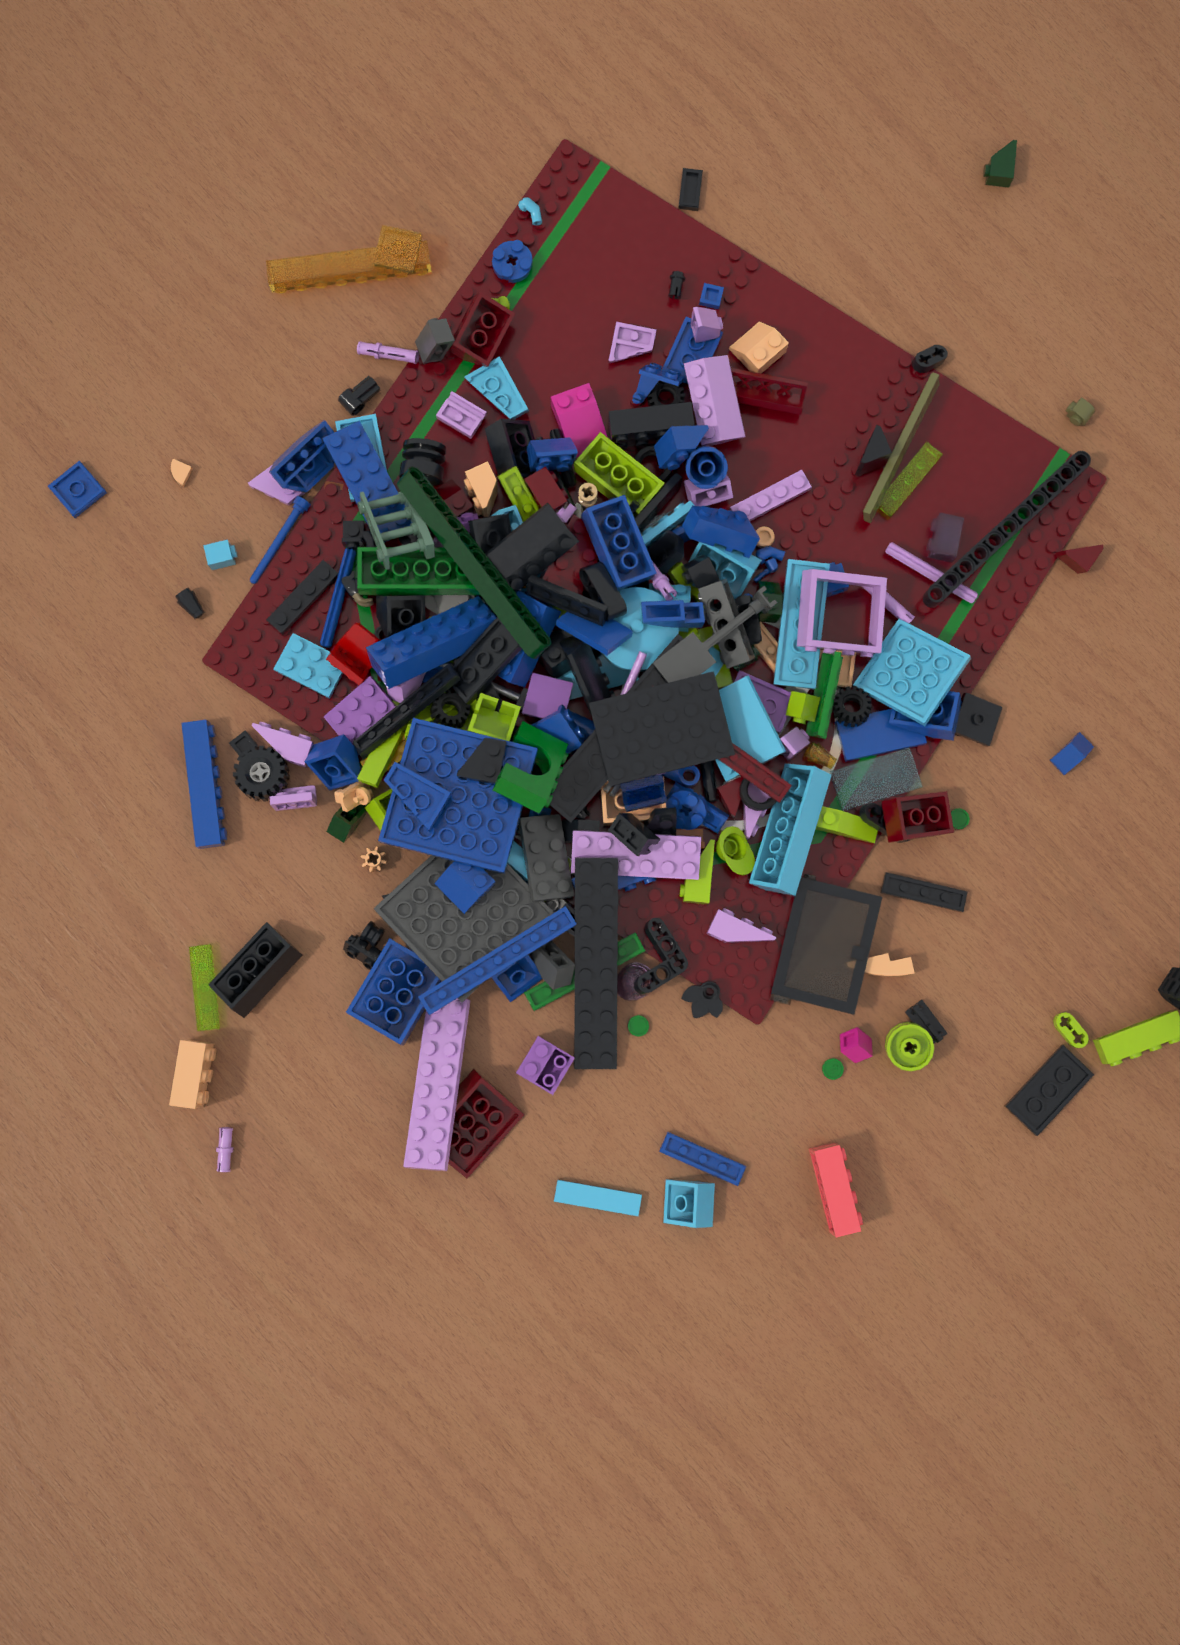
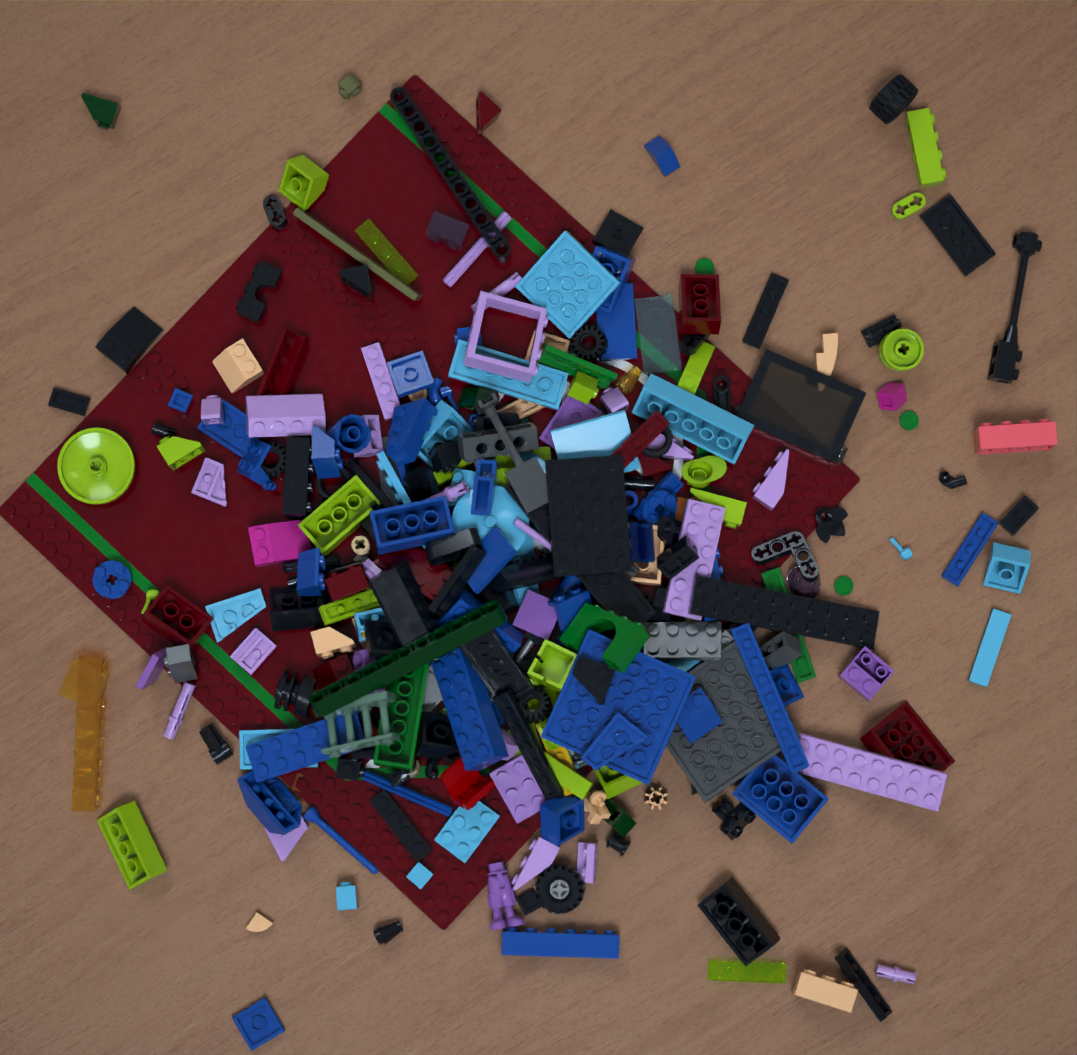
camera: 75 degrees left, 0 degrees up
(207, 1115) = (863, 984): none -> black tile
(242, 330) = (131, 845): none -> lime slope
(245, 713) = (500, 896): none -> medium lavender piece
(253, 625) = (419, 875): none -> medium azure tile
(319, 827) = (618, 844): none -> black bush
(364, 617) = (430, 766): none -> black arm
(420, 312) = (152, 669): none -> medium lavender tile
(533, 208) = (64, 551): medium azure arm -> none
(626, 221) = (96, 466): none -> lime dish
(655, 299) = (179, 451): none -> lime slope
(685, 1087) = (904, 553): none -> medium azure hand
(749, 1207) = (1018, 515): none -> black plate
(766, 235) = (129, 339): none -> black slope
(773, 1124) = (950, 482): none -> black arm
(783, 524) = (410, 374): none -> plate
(819, 858) = (722, 397): none -> black piece
(857, 355) = (263, 277): none -> black arch
(929, 1165) = (1006, 352): none -> black bar
(968, 379) = (302, 181): none -> lime slope

